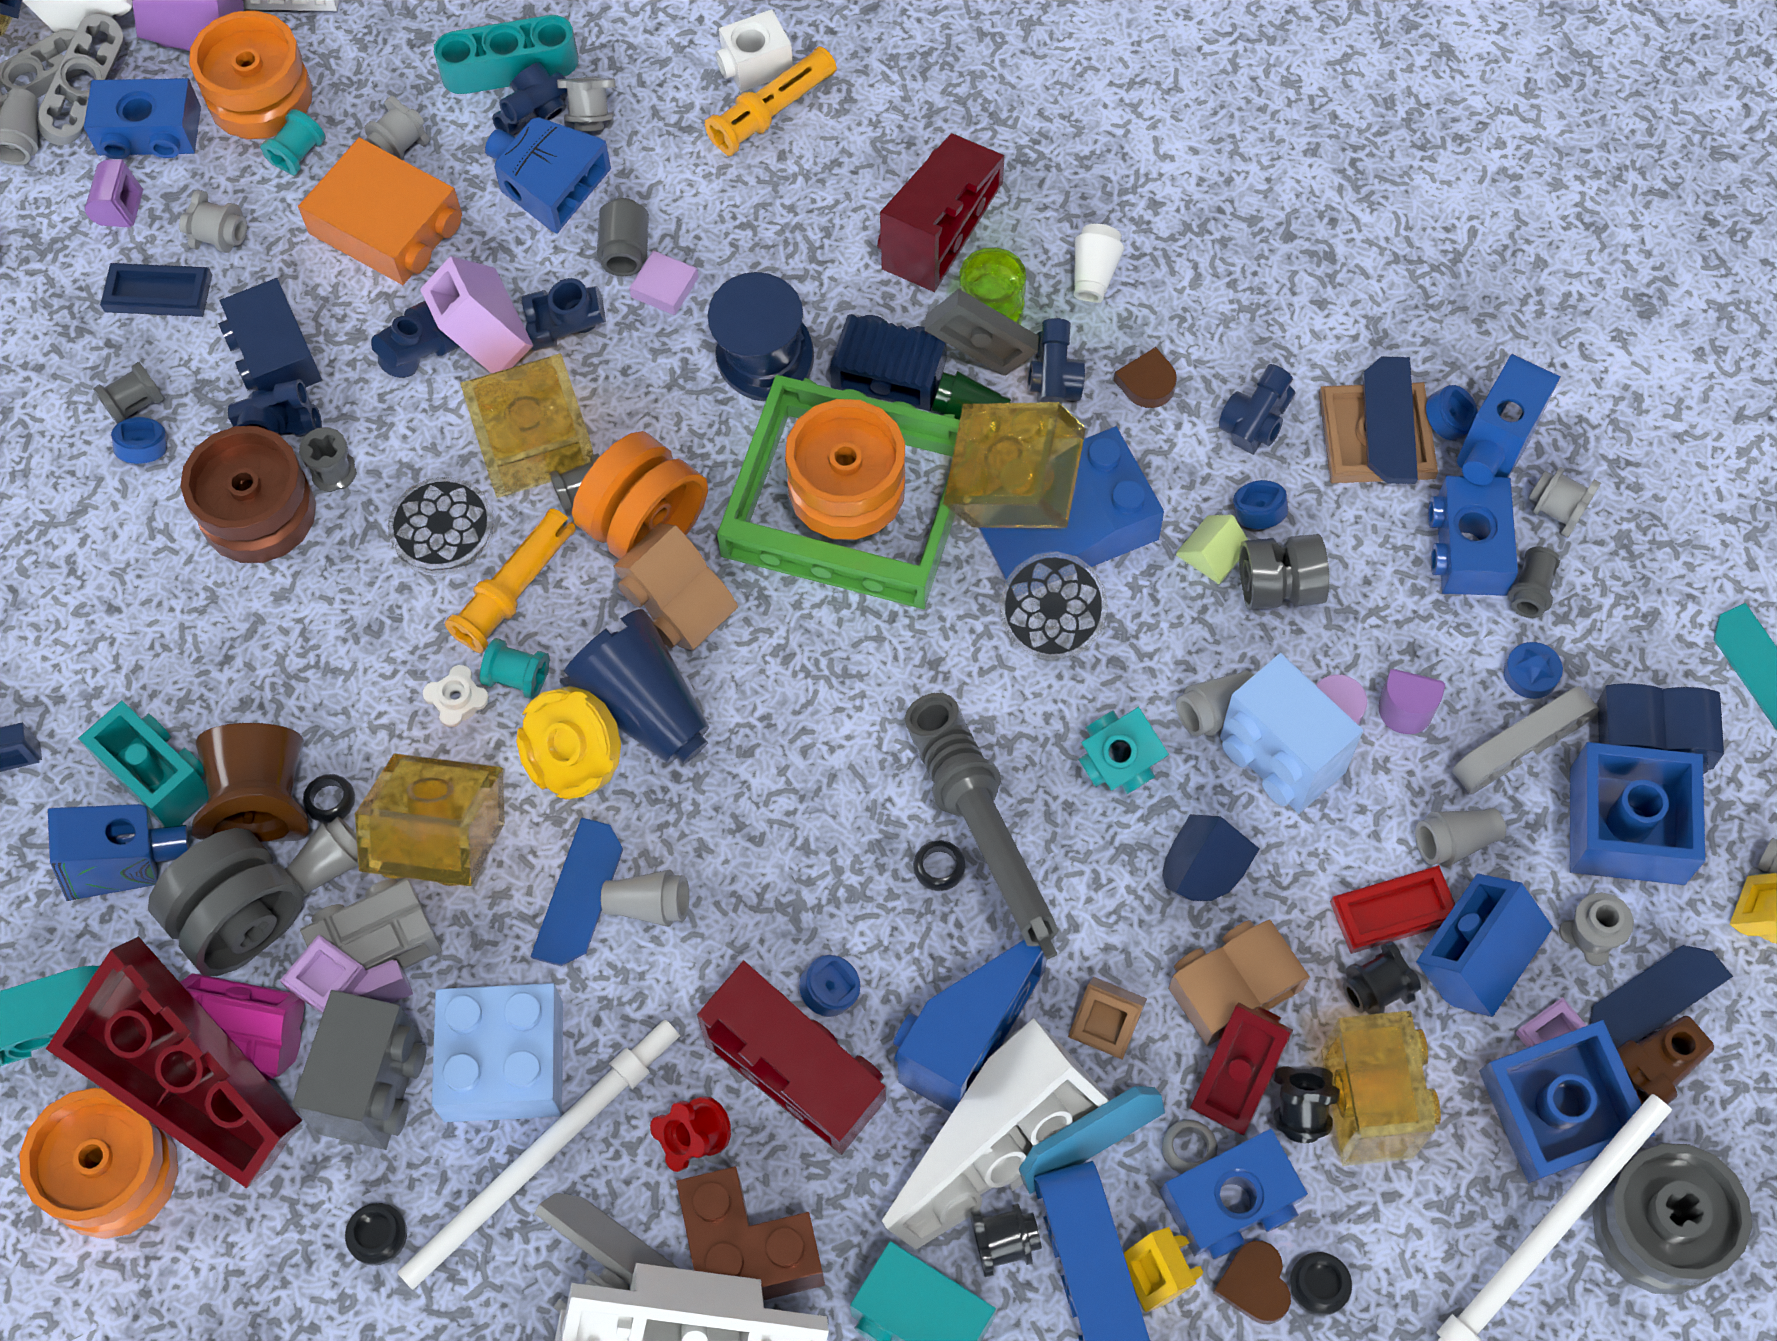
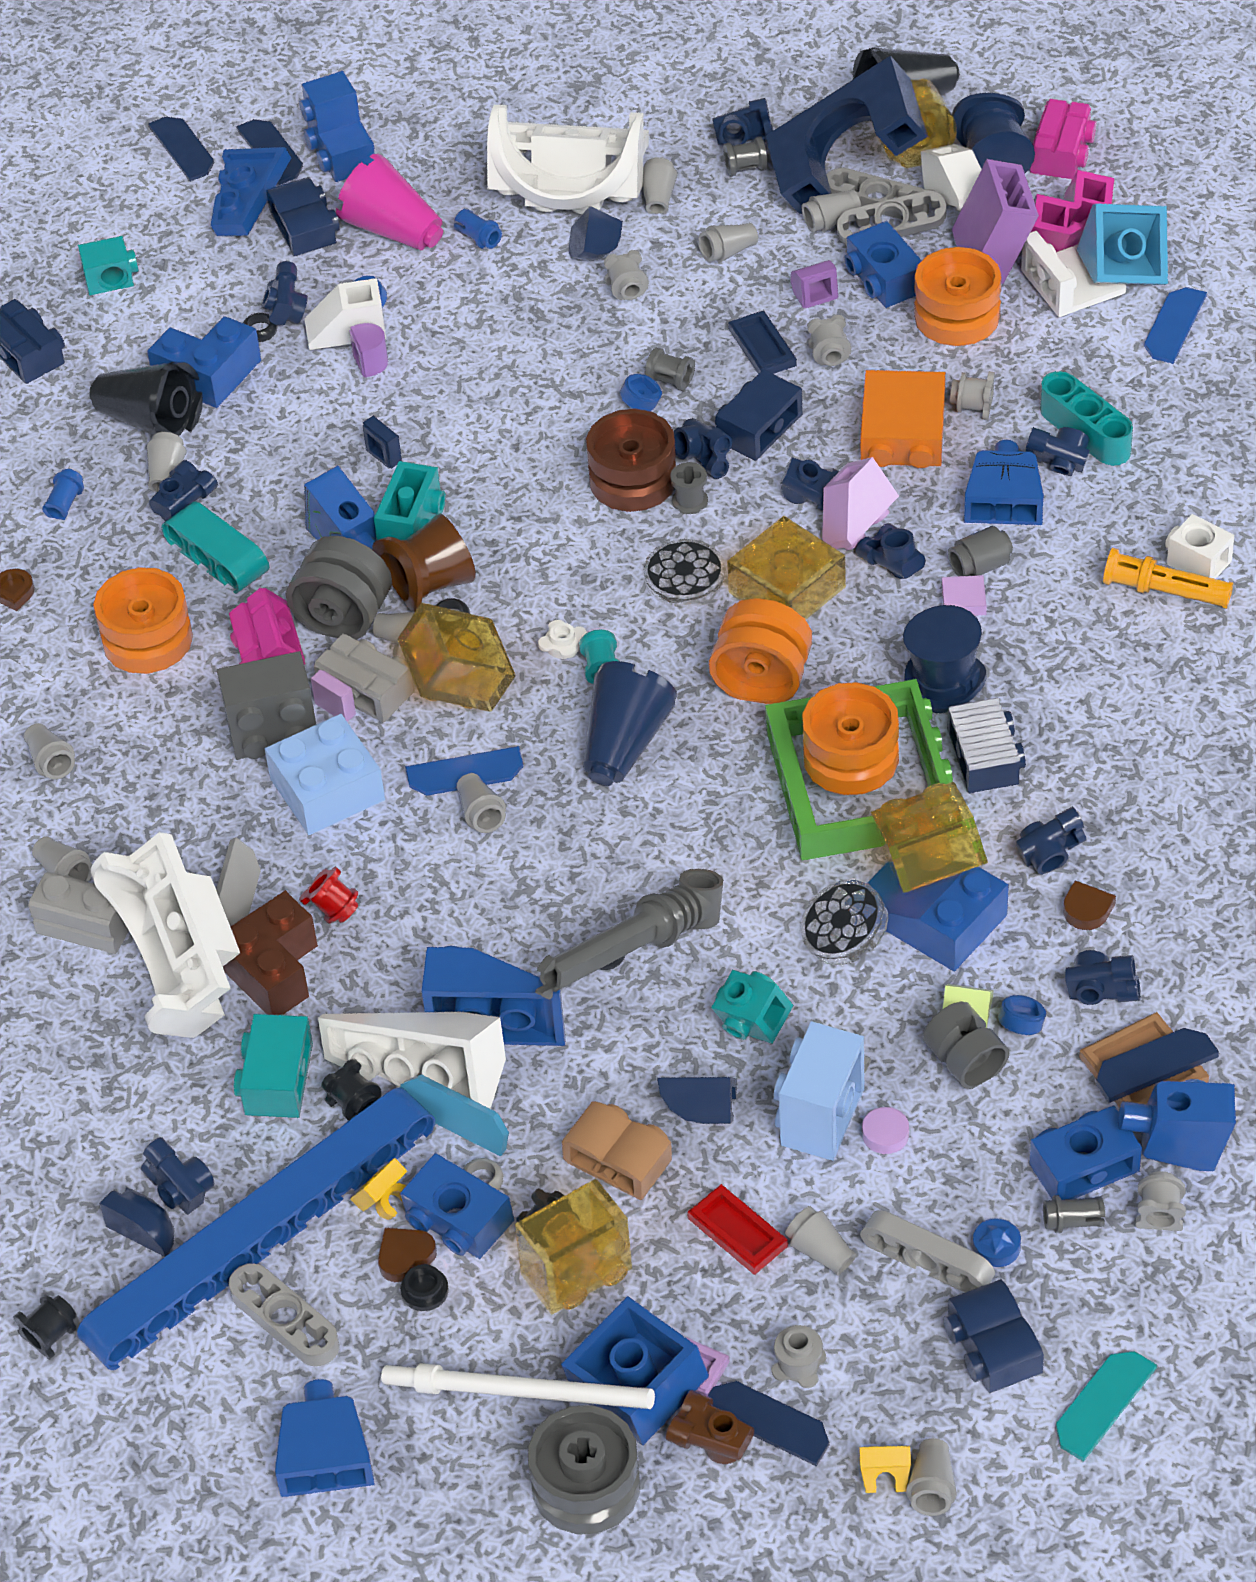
camera: 65 degrees right, 15 degrees down
(173, 1064) = (215, 609): dark red wedge -> none
(293, 142) = (925, 347): teal bush -> none
(321, 970) = (320, 655): lavender tile -> none
(376, 1234) = (178, 776): black plate -> none
(497, 597) = (646, 624): light orange pin -> none
(569, 742) = (559, 704): yellow tile -> none
(587, 101) = (1078, 478): light grey brick -> none
(626, 1070) = (354, 849): white bar -> none
(675, 587) = (708, 702): medium nougat brick -> none
(791, 1058) = (408, 917): dark red wedge -> none
(829, 985) = (477, 926): blue tile -> none
(938, 211) = (1135, 710): dark red wedge -> none
(959, 390) = (986, 802): dark green cone -> none
(981, 332) = (1033, 764): dark grey plate -> none
(996, 280) = (1081, 773): clear neon green wheel -> none
(1096, 260) = (1166, 828): white cone -> none
(1107, 1017) = (551, 1091): medium nougat slope -> none
(1242, 1067) = (550, 1168): dark red plate -> none
(1381, 981) = (668, 1234): black brick -> none
(1409, 701) = (909, 1167): medium lavender brick -> none
(1484, 944) = (731, 1280): blue brick -> none
(1637, 813) = (901, 1336): blue brick -> none

